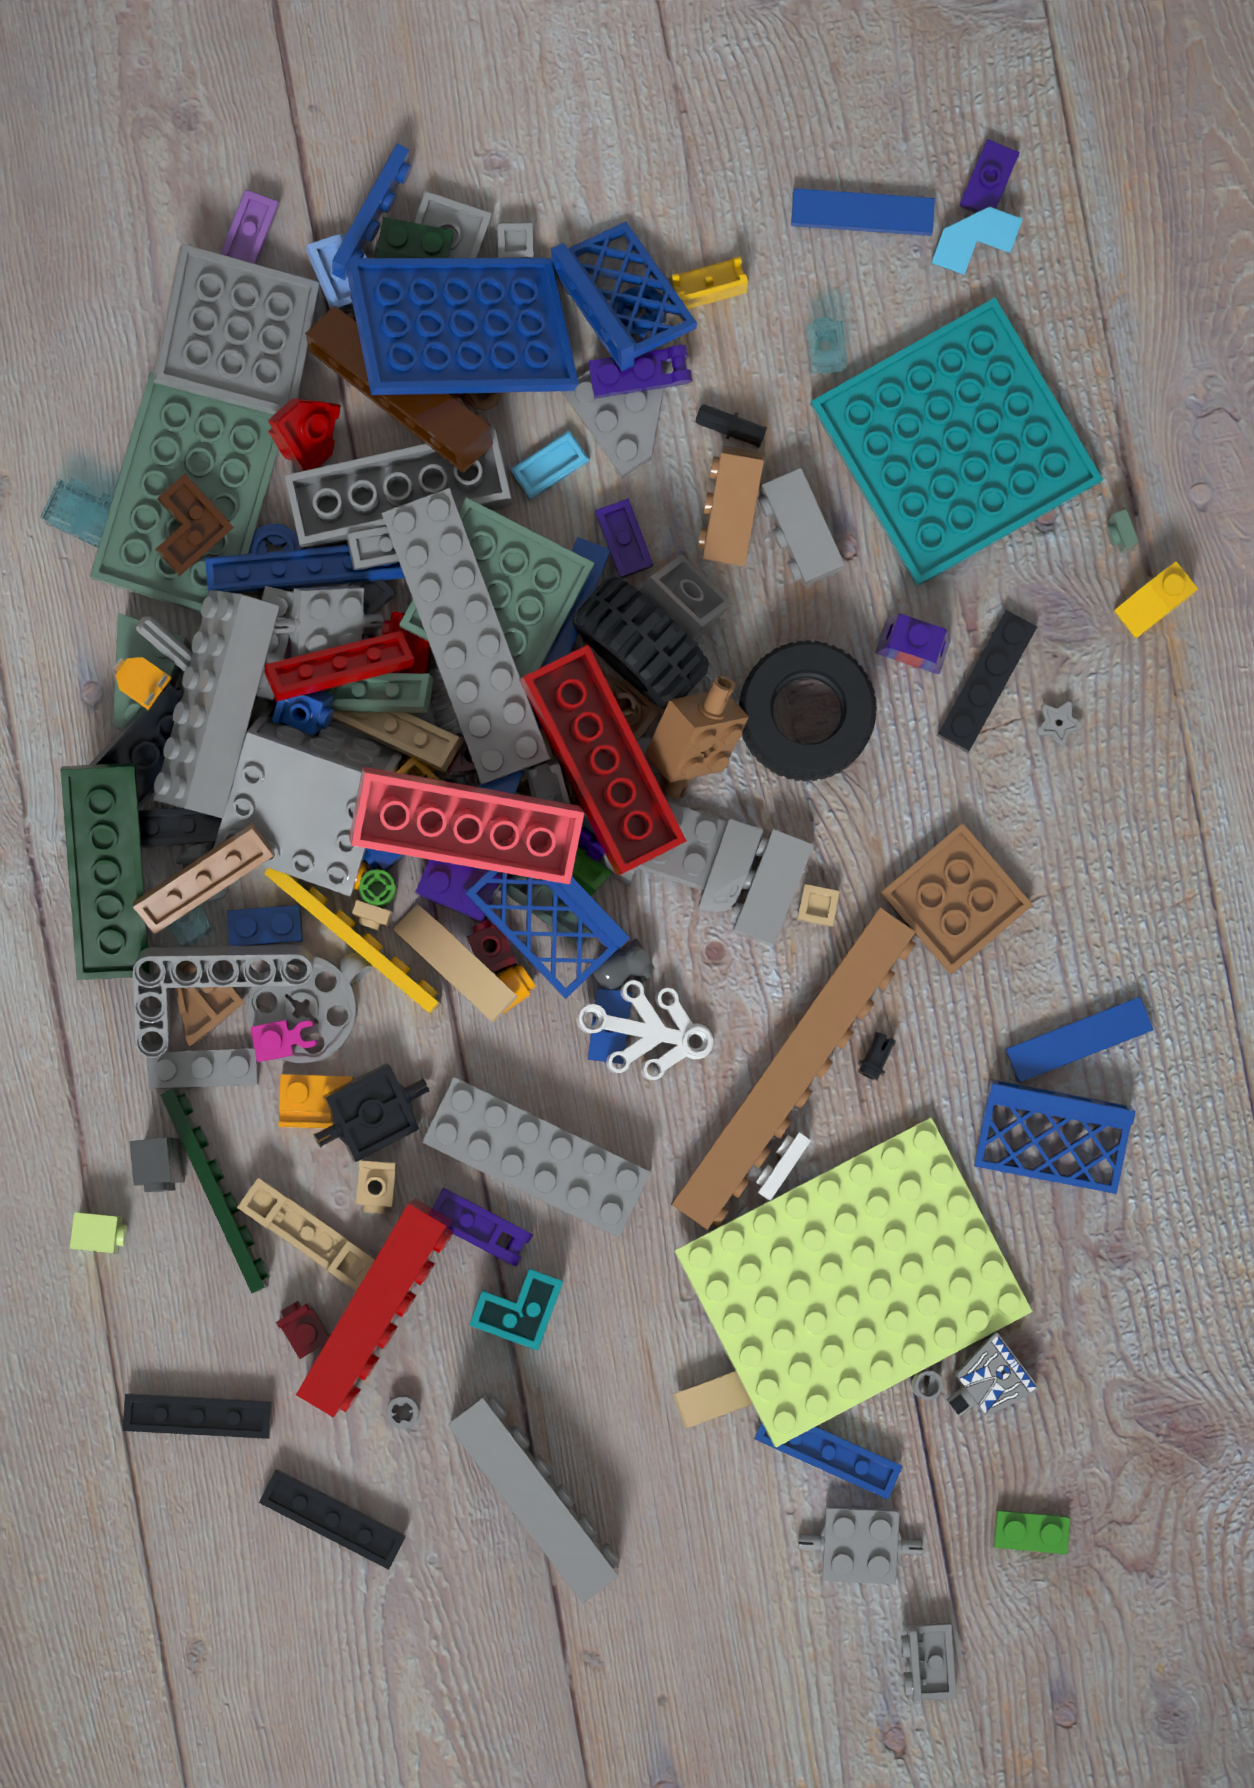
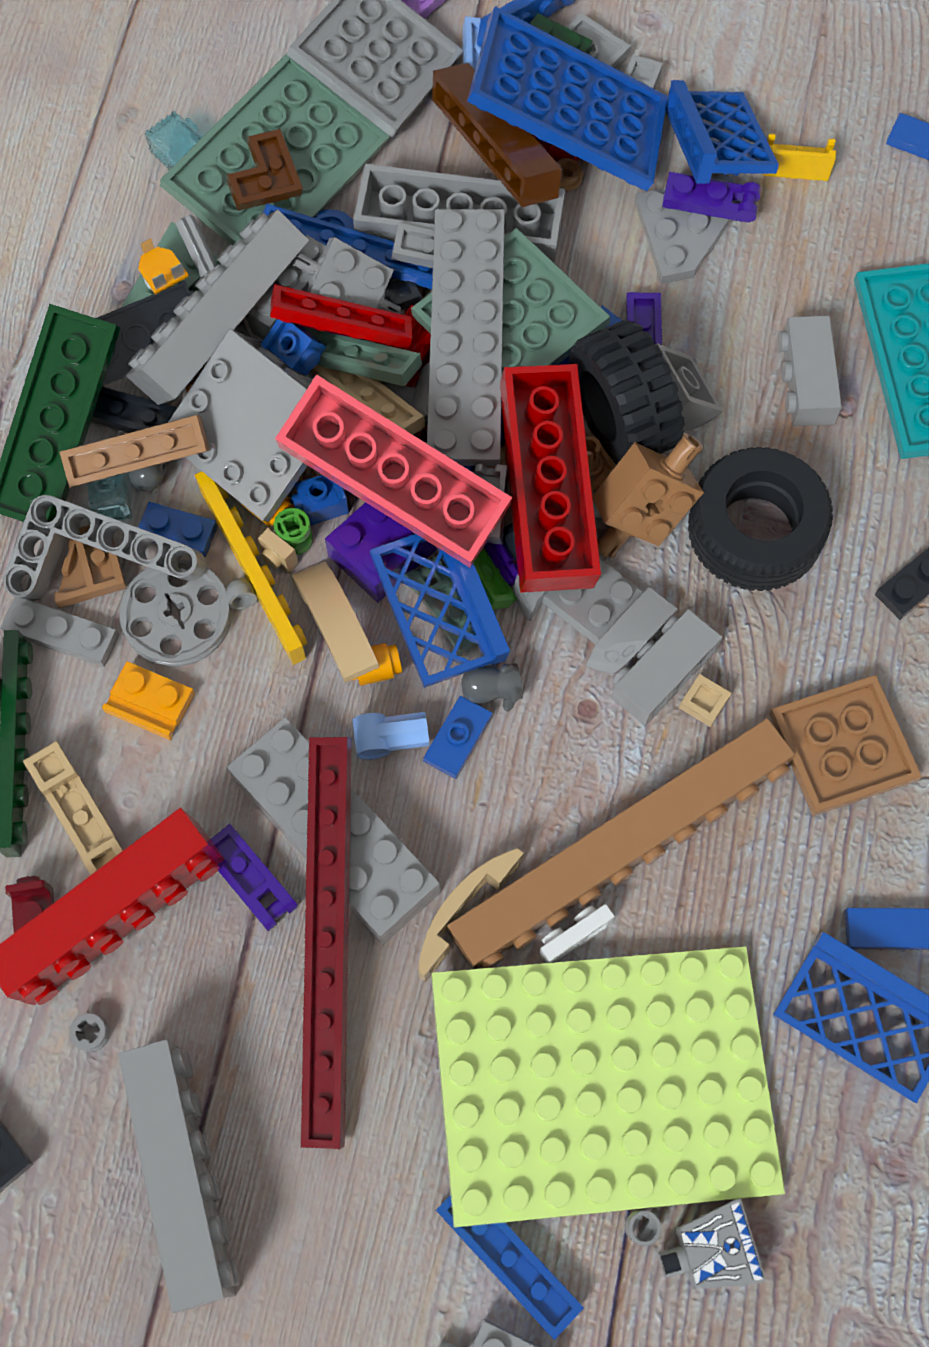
camera: 25 degrees right, 15 degrees down
(277, 1040) = (137, 625): dark pink plate -> none
(305, 431) = (400, 141): red plate -> none
(371, 1112) = (193, 725): black plate -> none
(383, 1172) = (181, 789): tan brick -> none
(501, 957) = (377, 630): dark red brick -> none
(520, 1320) = (251, 982): teal brick -> none
(542, 1052) = (378, 735): none -> light blue piece
(549, 465) = (600, 250): medium azure tile -> none
(575, 1258) = (326, 943): none -> dark red plate
(651, 1031) = (495, 753): white plant -> none
(694, 1139) = (496, 873): none -> tan slope
(711, 1399) = (407, 1148): tan slope -> none
(730, 425) = (776, 271): black axle -> none
(731, 505) = (753, 325): medium nougat wedge -> none
(829, 331) = (885, 237): clear light blue brick -> none
(876, 1056) = (710, 865): black pin -> none
(914, 642) = (885, 499): dark purple torso -> none

